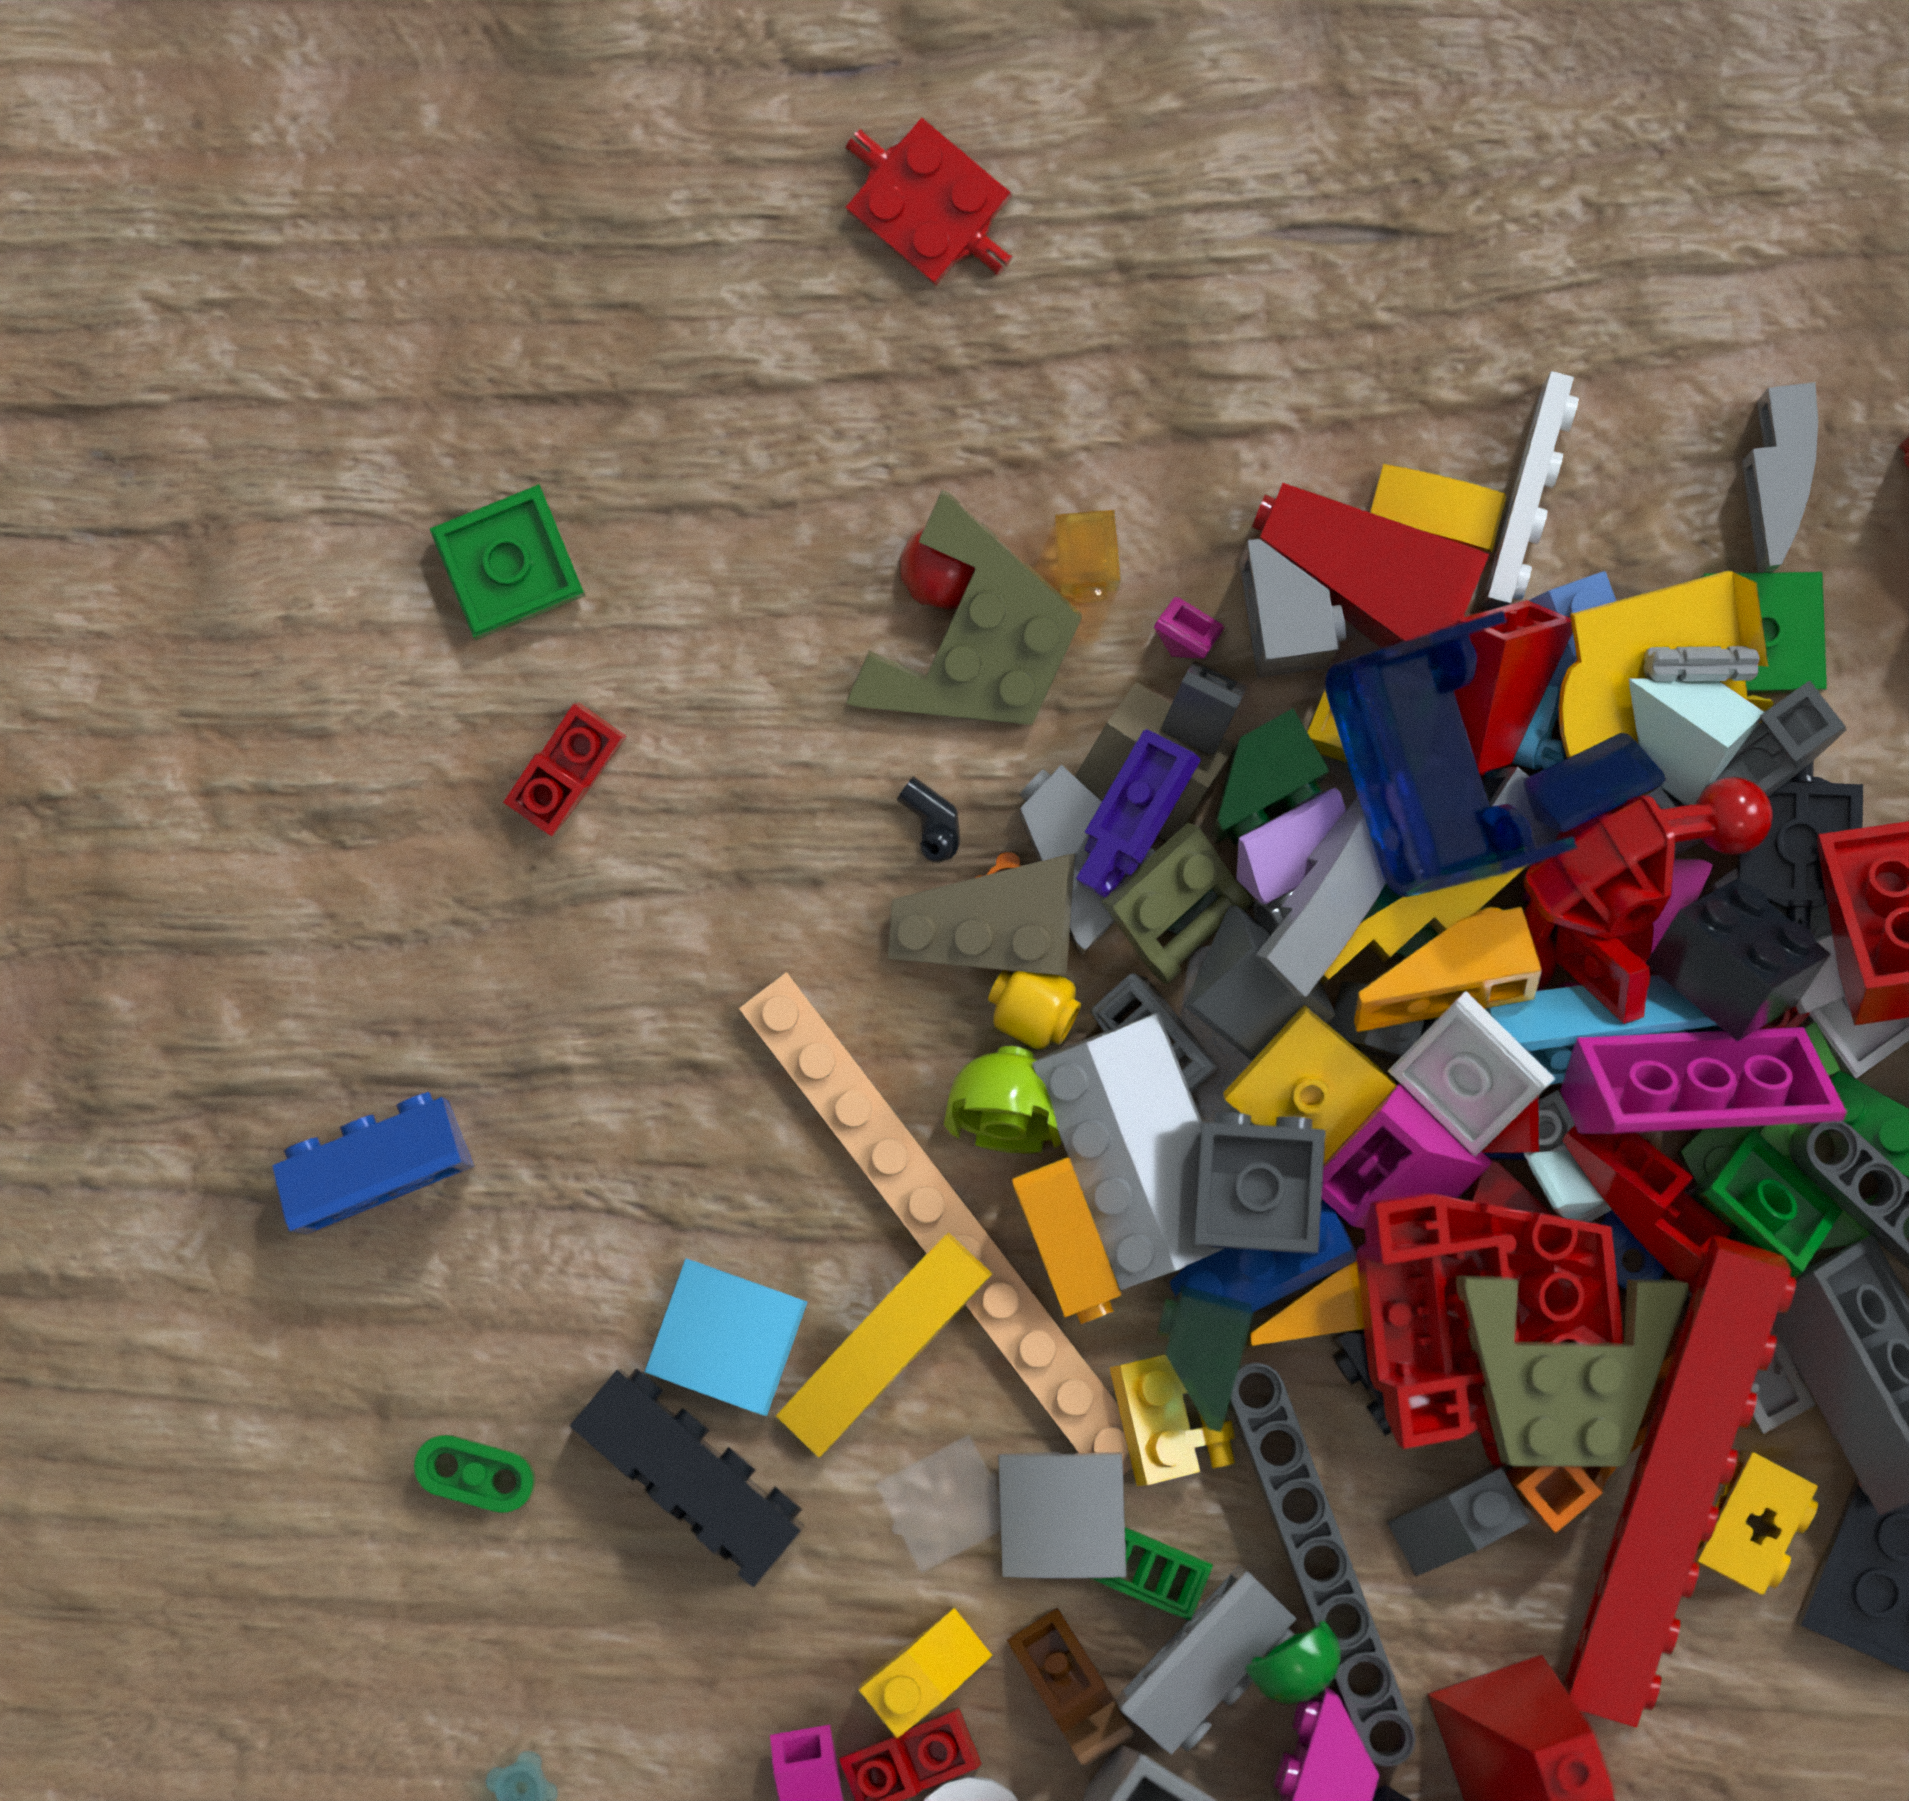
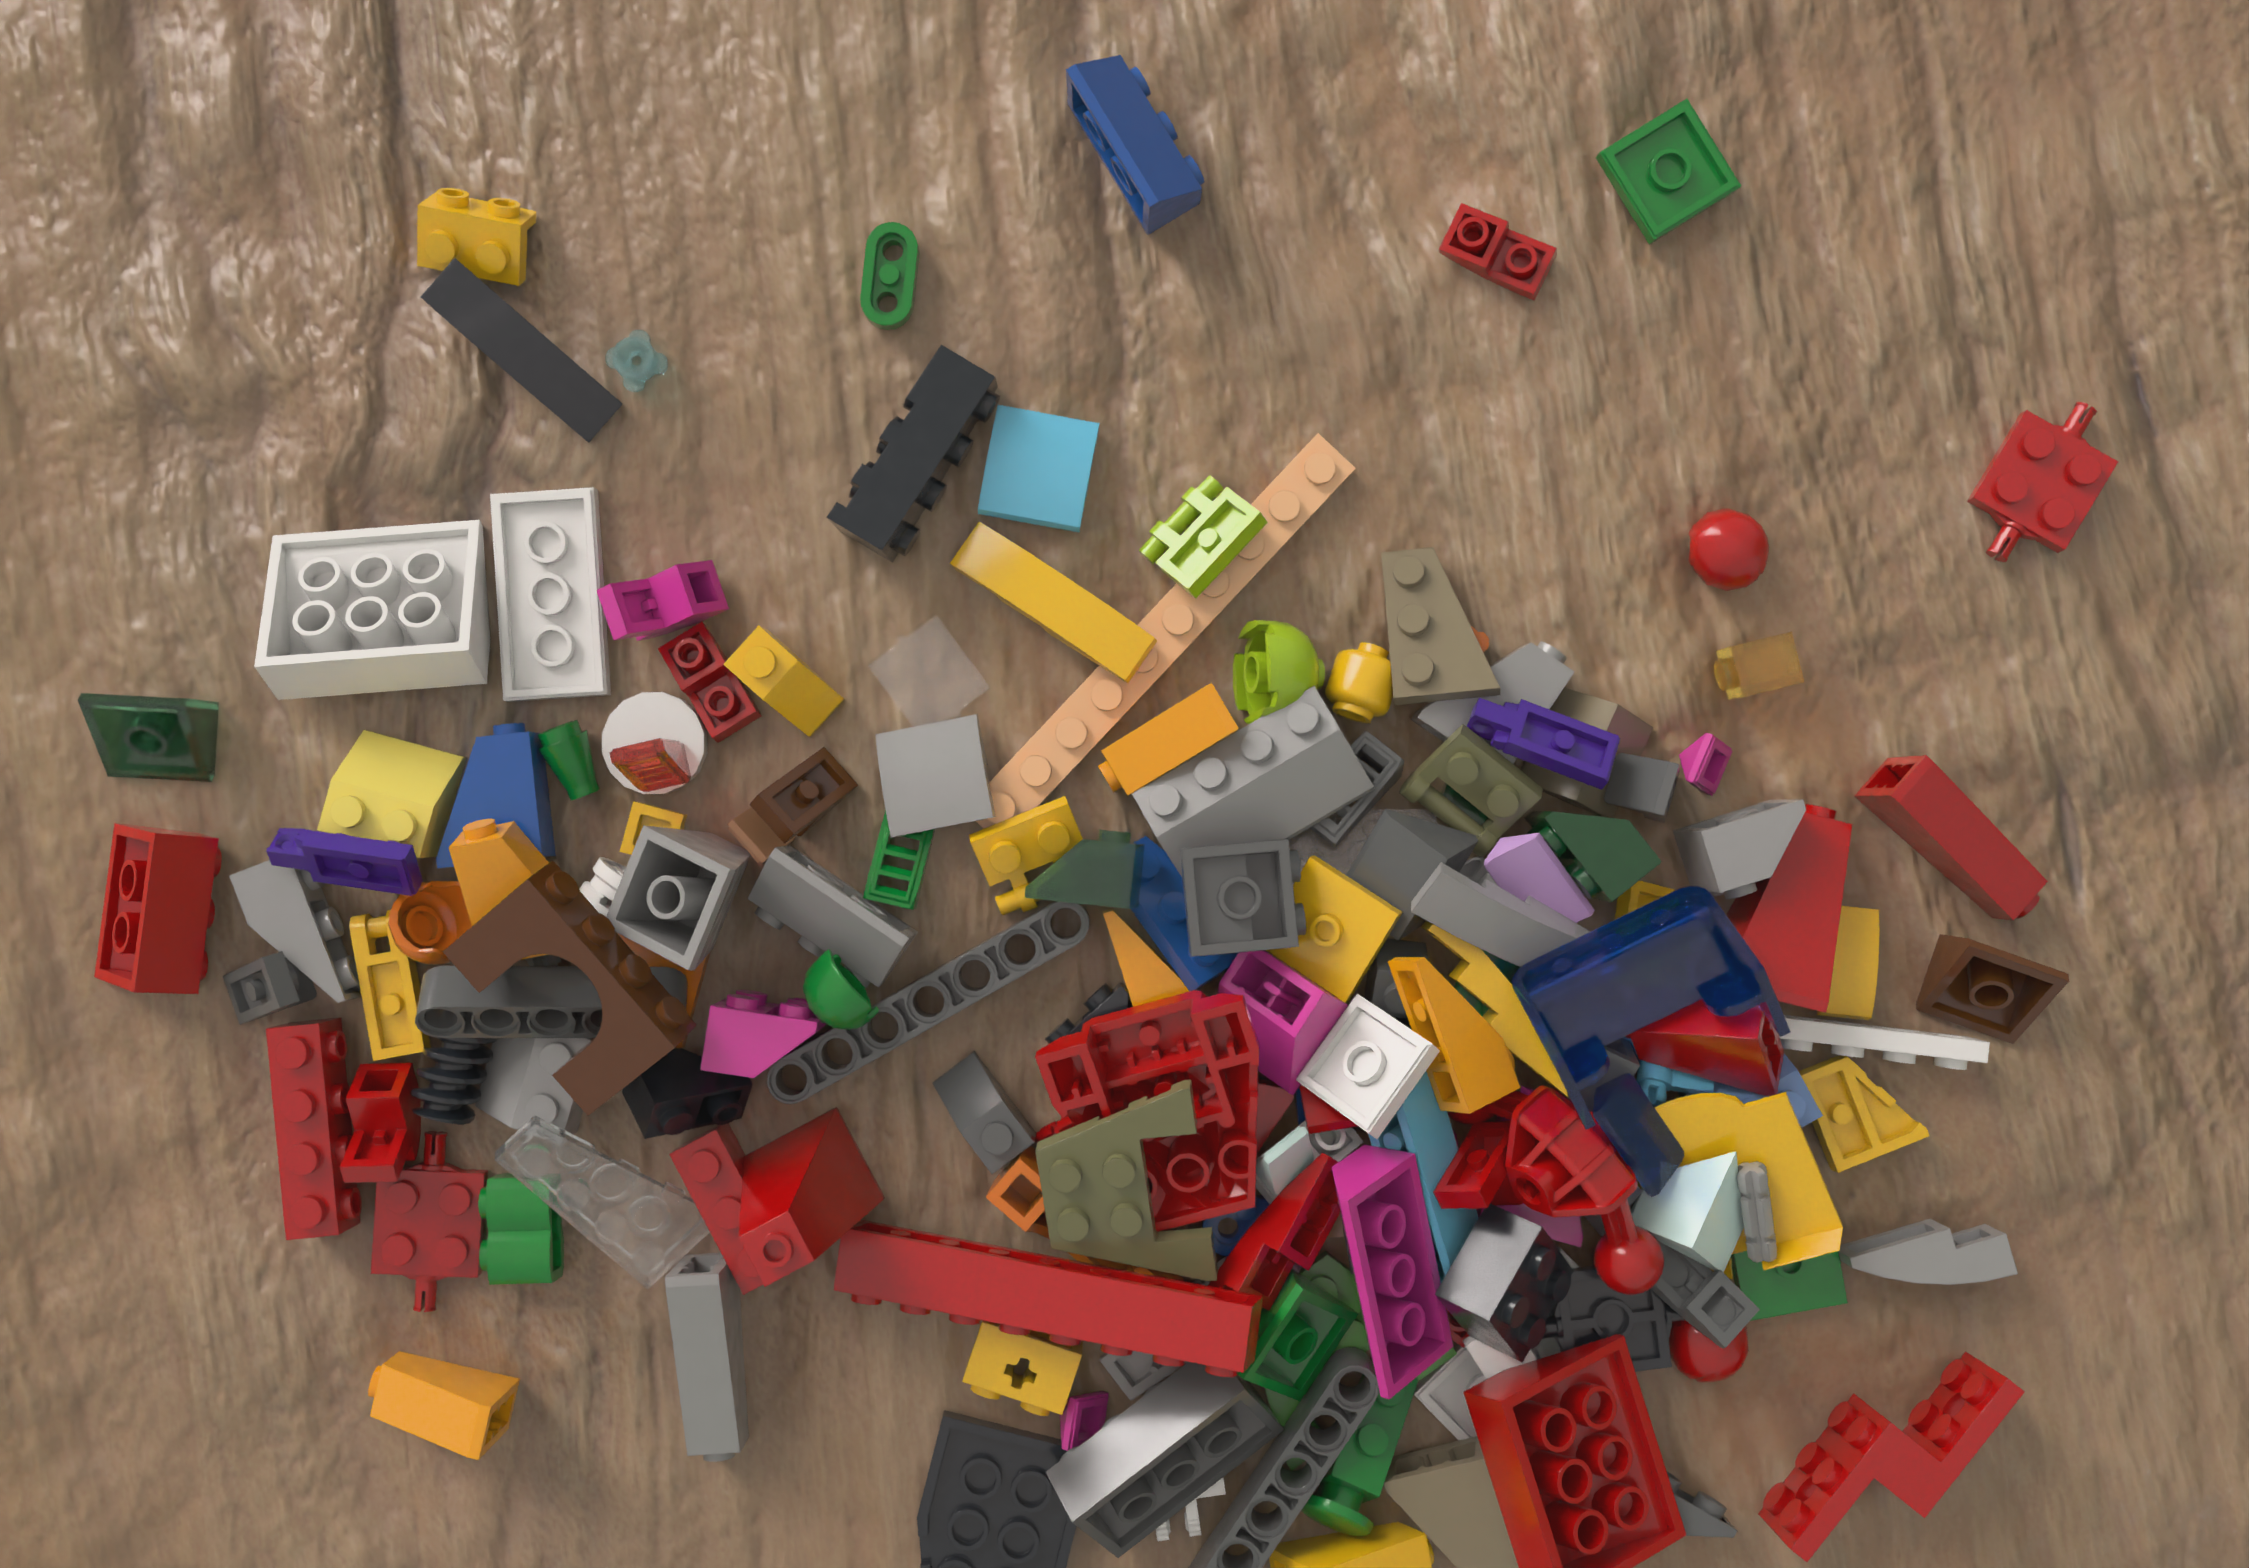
camera: 90 degrees right, 5 degrees up
(846, 1154) = (1209, 541): none -> lime plate
(937, 817) = (1508, 576): black arm -> none
(998, 643) = (1670, 602): olive wing -> none
(1314, 370) = (1952, 835): none -> red slope
(1491, 360) = (1986, 988): none -> reddish brown slope
(1610, 529) = (1858, 1116): none -> yellow wing
(1826, 1464) = (1082, 1418): none -> dark pink slope
(1863, 743) = (1702, 1358): none -> red hair

